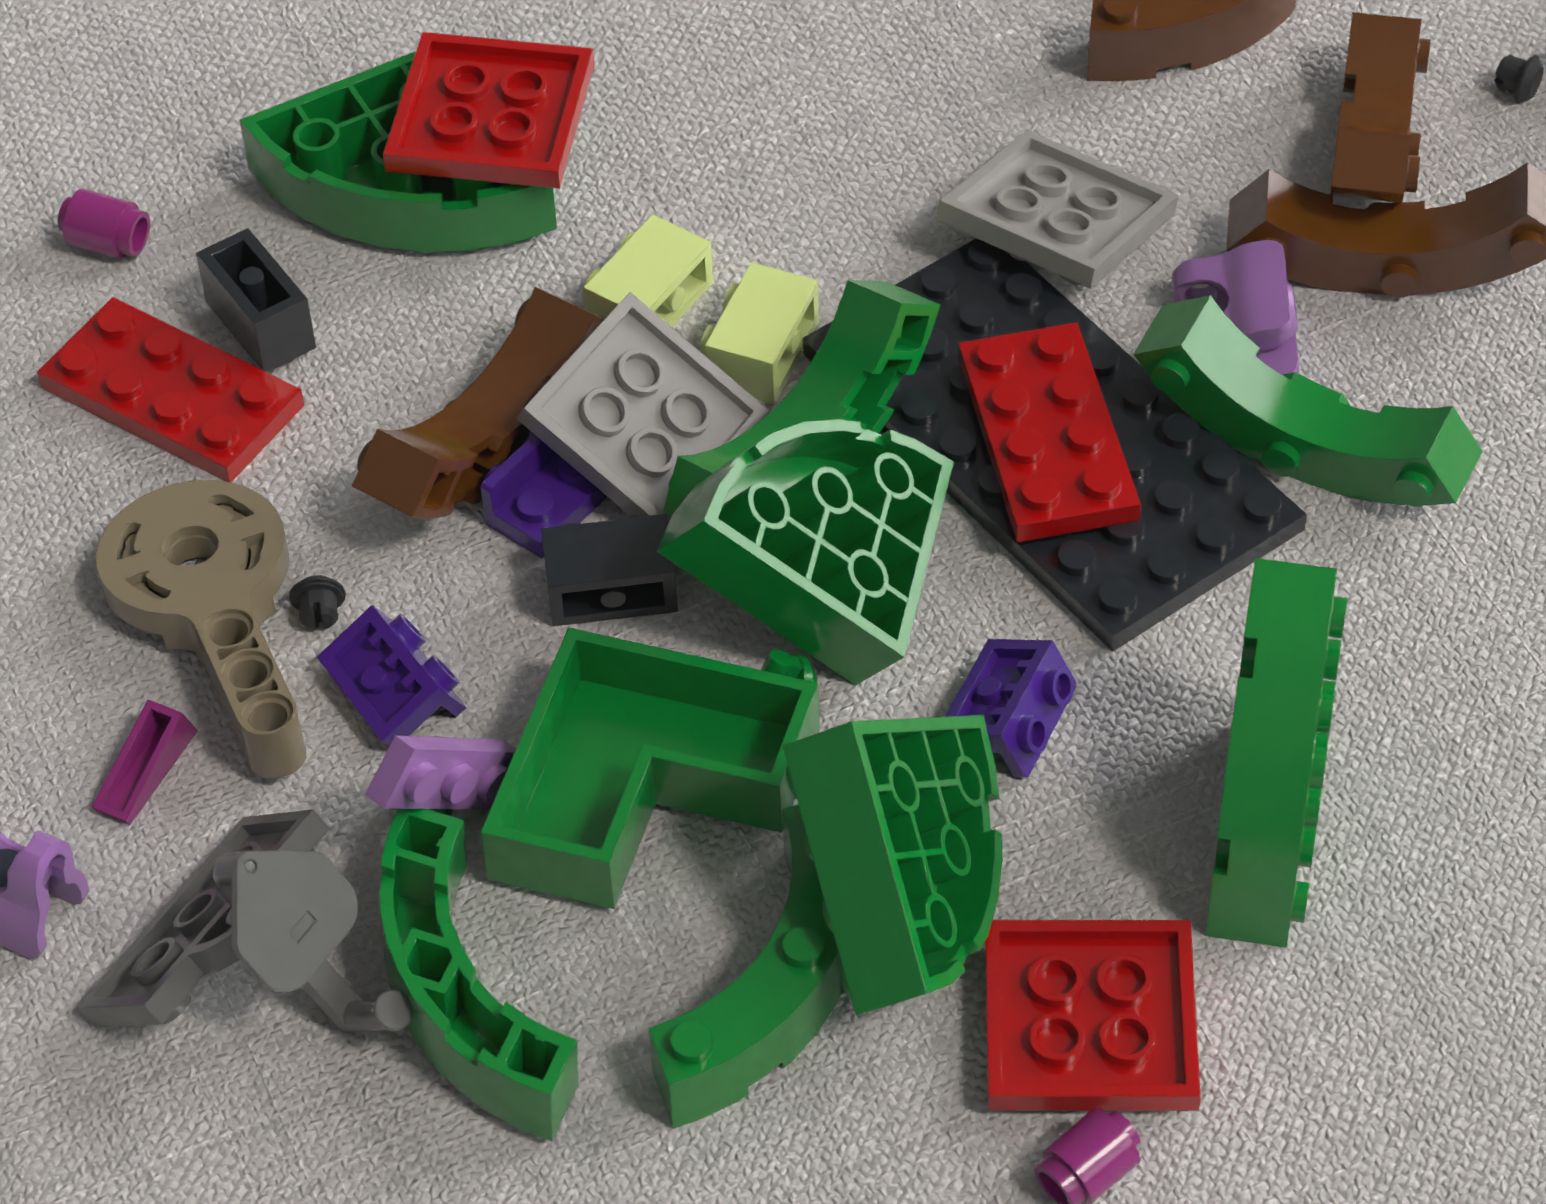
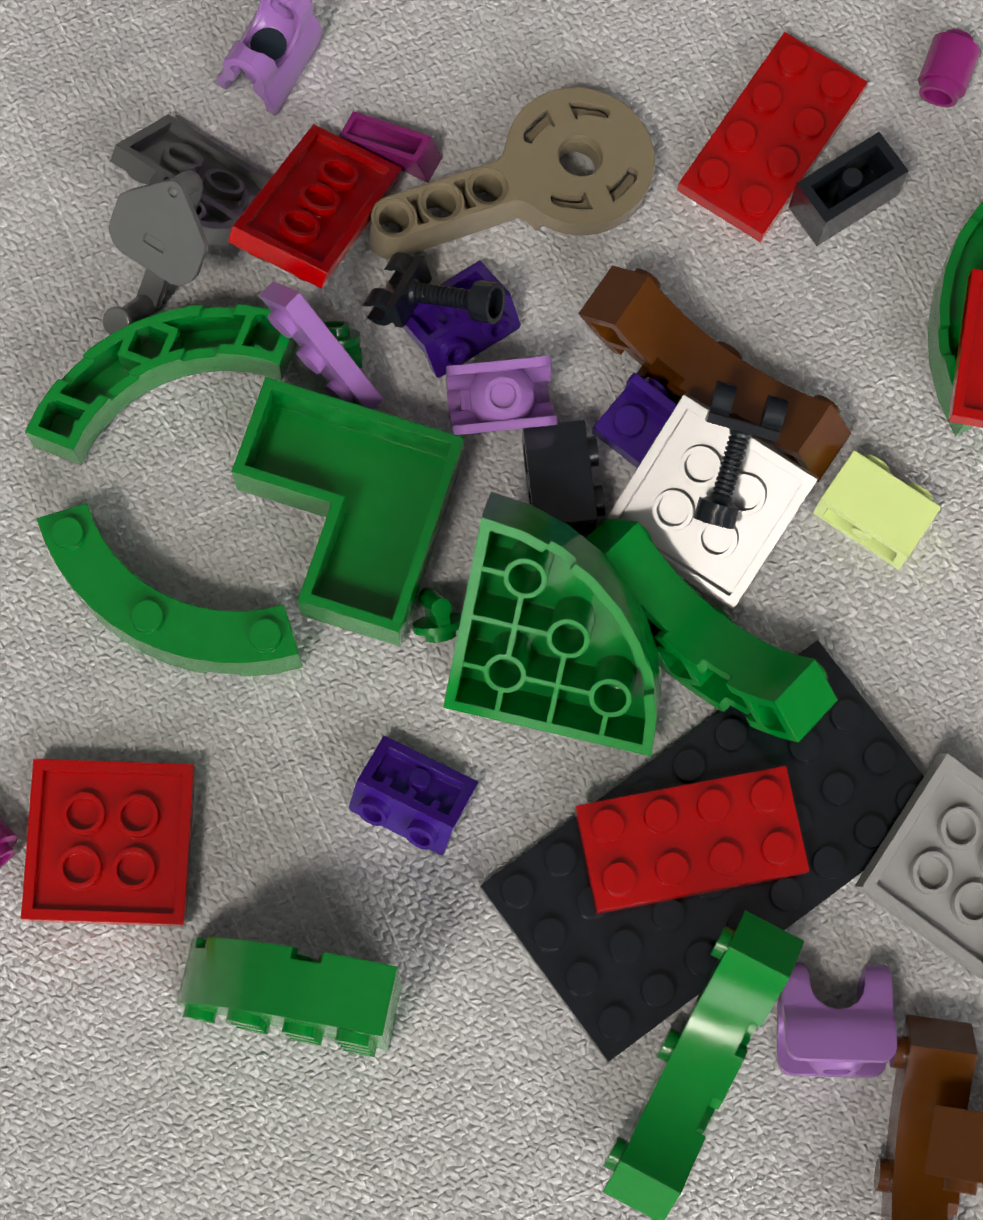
camera: 85 degrees right, 25 degrees up
(246, 792) = (315, 206): none -> red plate
(317, 600) = (539, 259): black piece -> none
(328, 726) = (412, 283): none -> black bar
(516, 612) = (500, 395): none -> medium lavender piece
(543, 357) = (718, 506): none -> black bar
(763, 329) = (821, 603): yellowish green brick -> none
(901, 848) = (227, 693): green brick -> none

